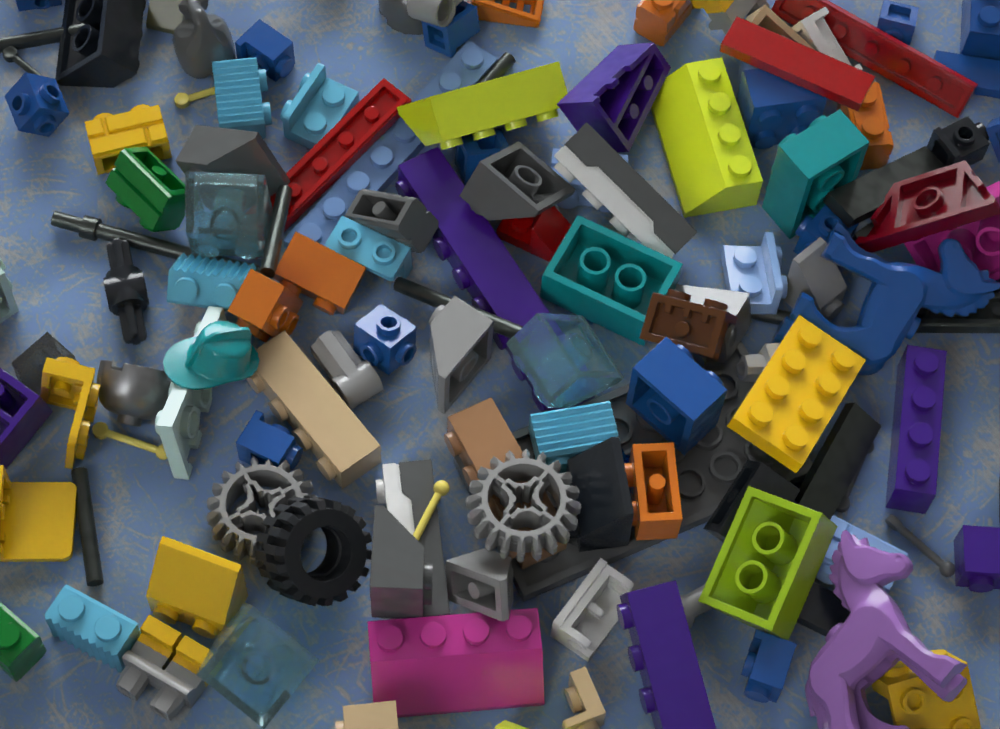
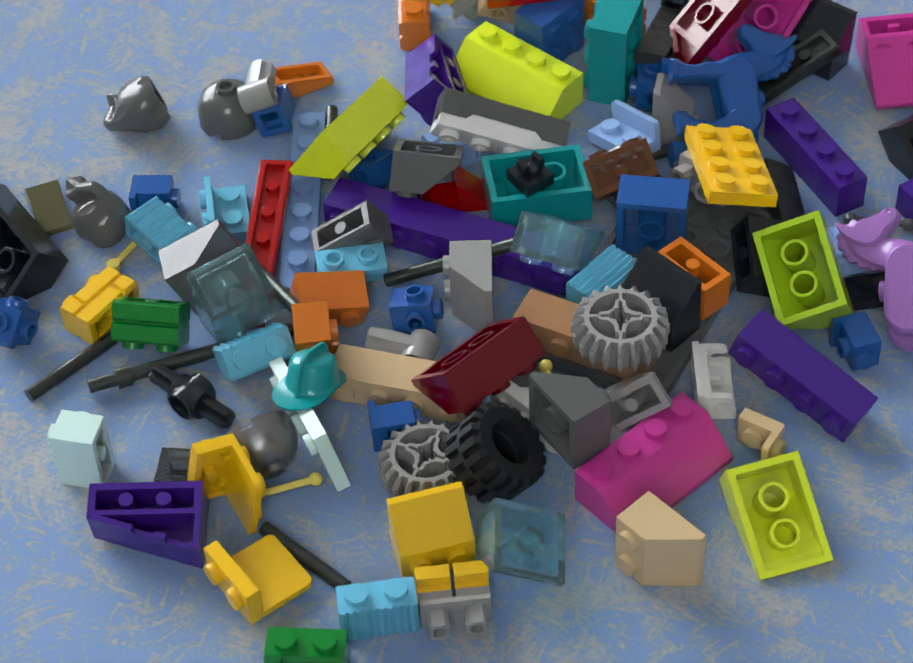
camera: 30 degrees left, 15 degrees down
(53, 186) = (69, 367): none -> pearl dark grey bar
(374, 449) = (481, 366): none -> dark red slope
(599, 270) = (530, 175): none -> black tile

